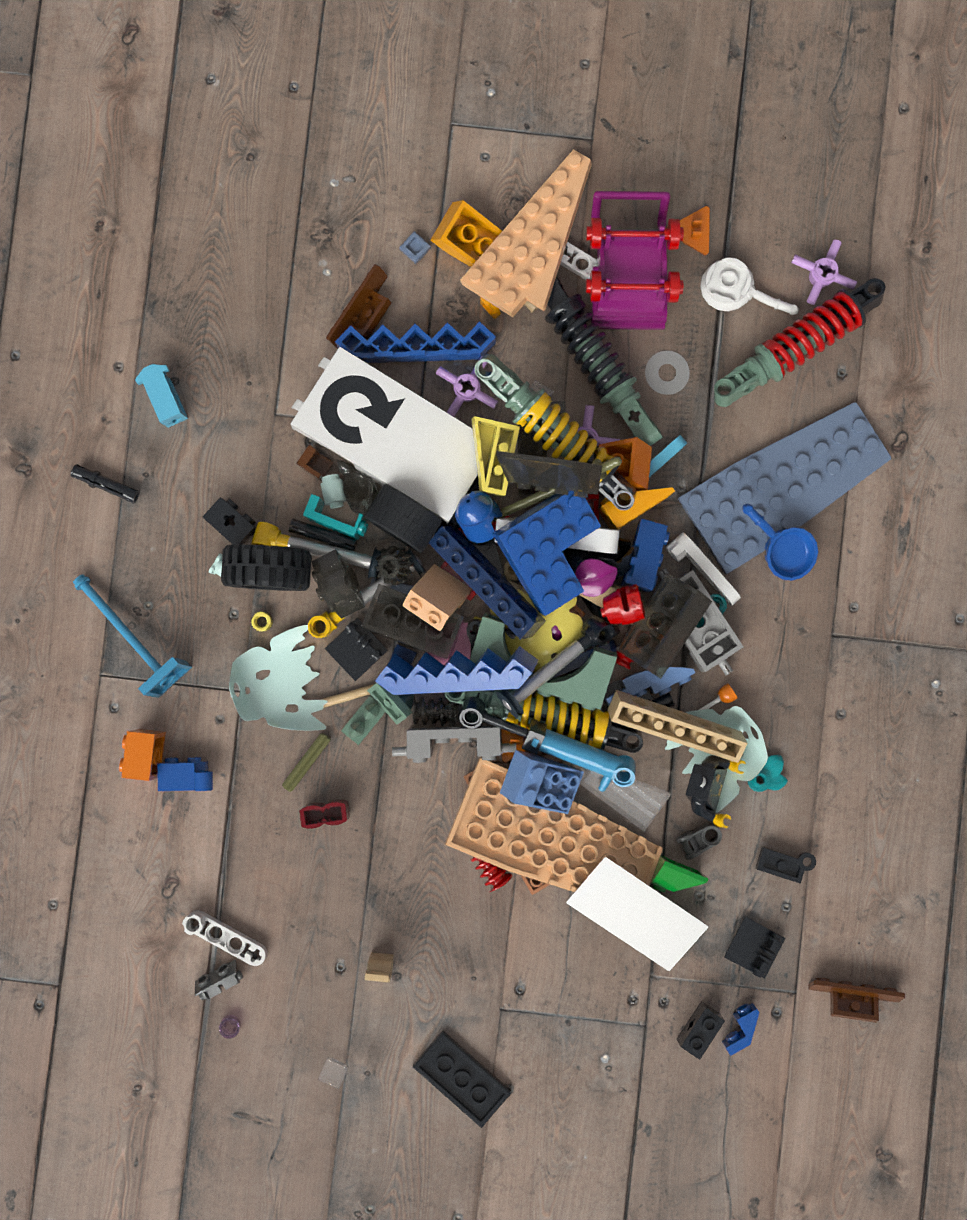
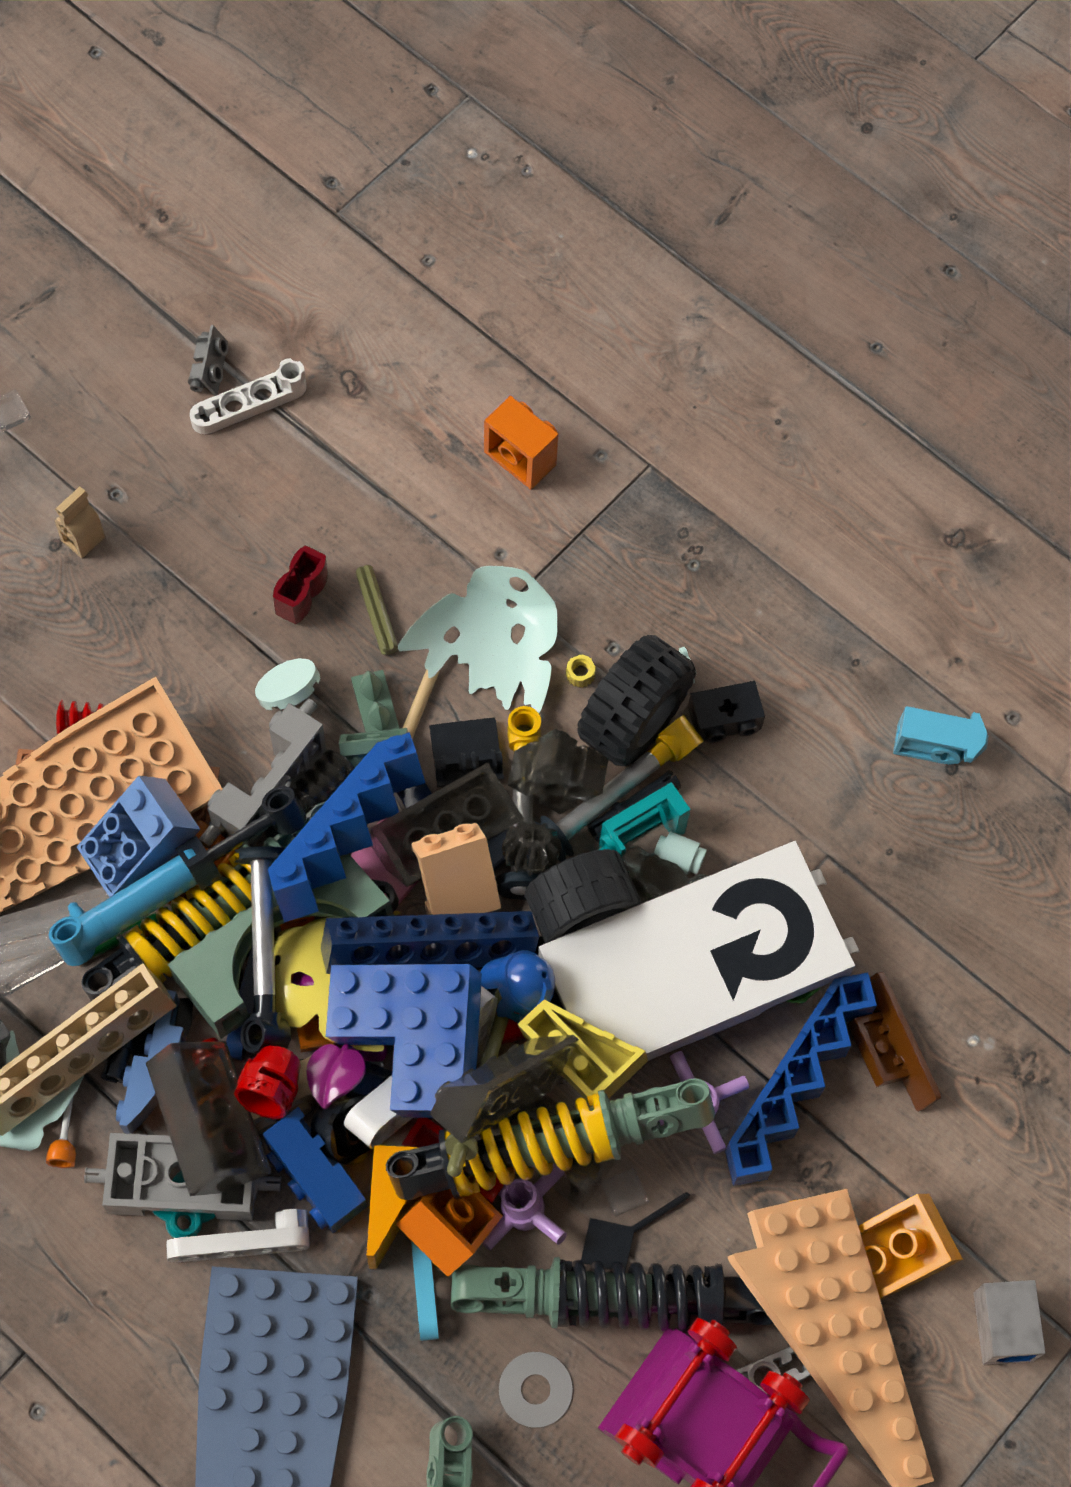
camera: 125 degrees right, 20 degrees down
(95, 479) = (886, 602): black pin -> none
(164, 675) = (594, 519): dark azure tile -> none
(185, 775) = (464, 471): blue hinge -> none
(225, 1032) = (151, 350): clear purple bush -> none
(314, 463) = (729, 850): reddish brown panel -> none
(389, 775) = (287, 684): none -> light aqua tile
(415, 247) = (932, 1172): sand blue tile -> none
(469, 158) = (1009, 1322): none -> flat silver piece
(569, 385) = (613, 1241): none -> black piece
(788, 551) = (177, 1361): blue piece -> none

